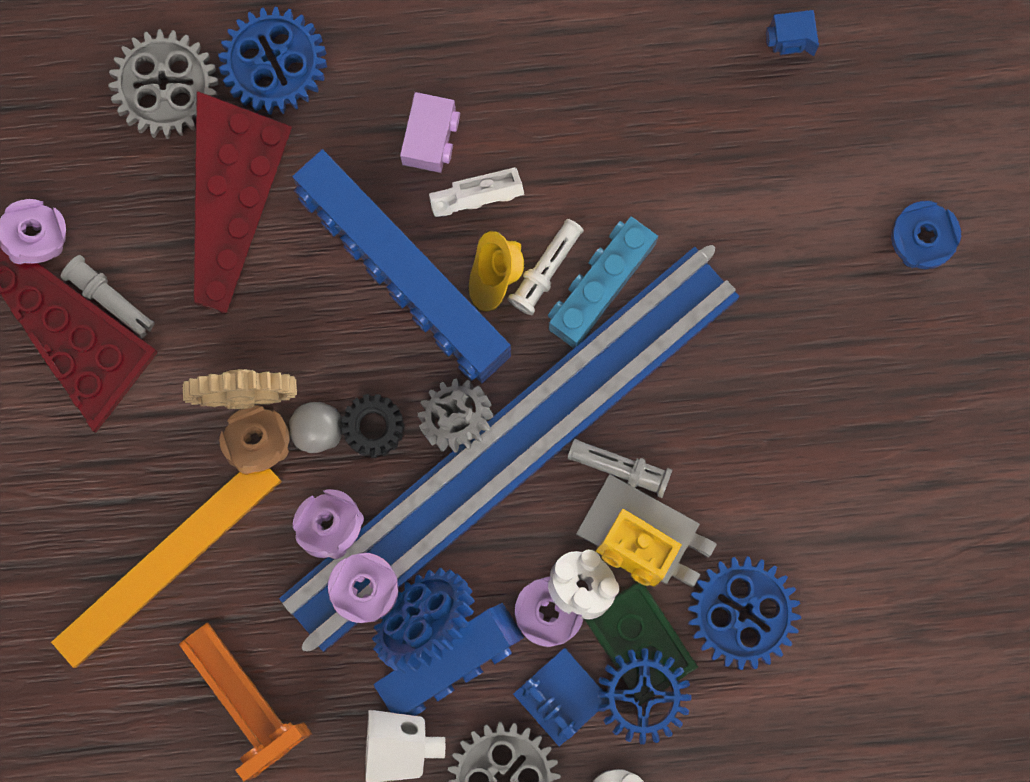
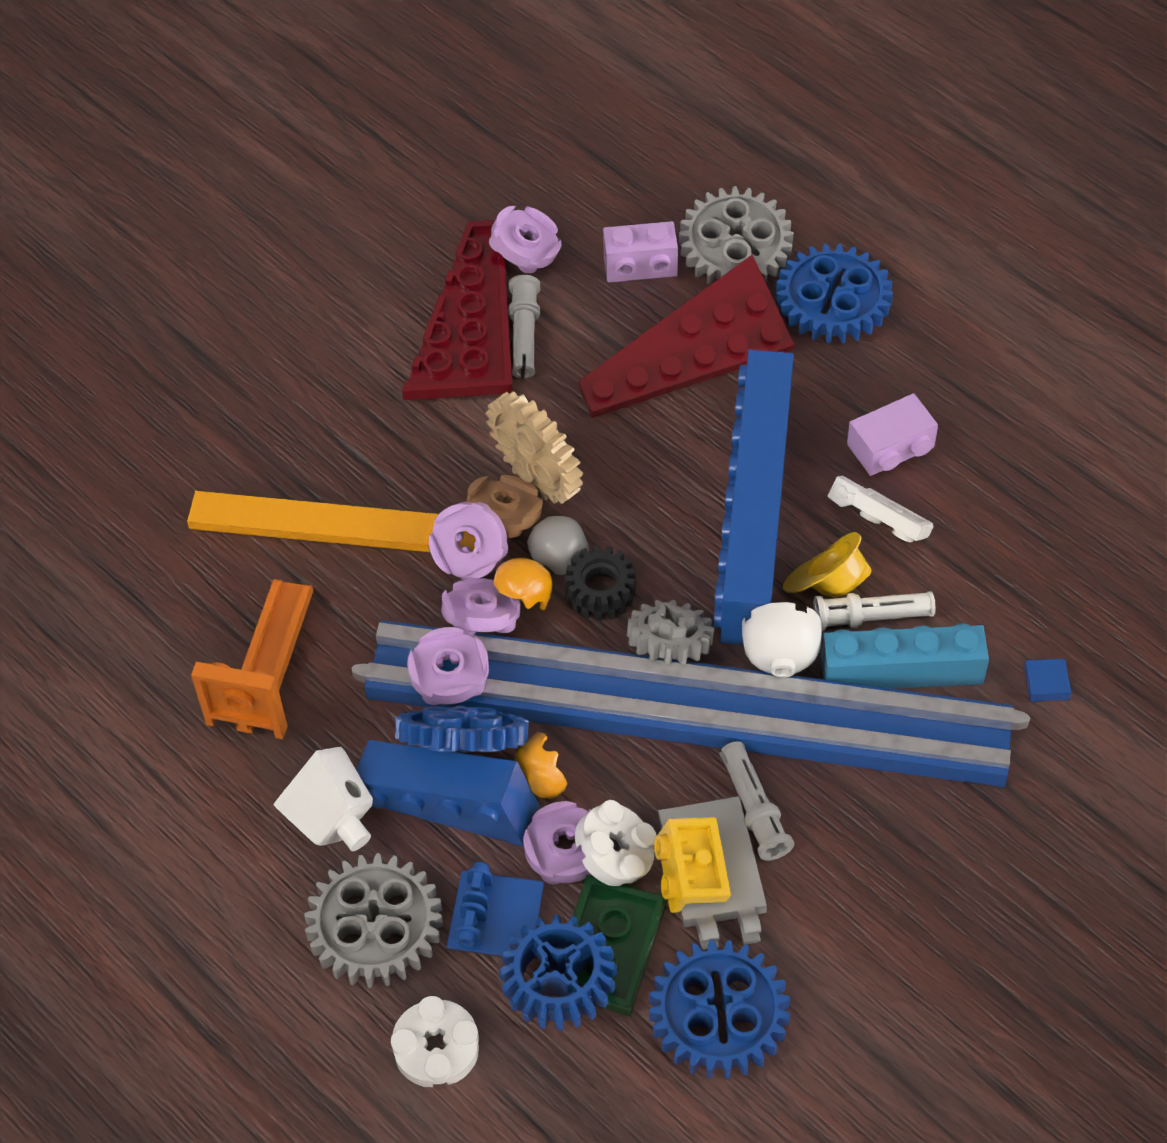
camera: 50 degrees right, 25 degrees down
(117, 161) = (640, 251): none -> lavender brick
(263, 475) = (489, 546): none -> lavender plate
(334, 480) = (524, 580): none -> light orange hair
(488, 592) = (540, 767): none -> light orange hair
(532, 355) = (782, 638): none -> white cylinder
(689, 204) = (1047, 680): none -> blue tile

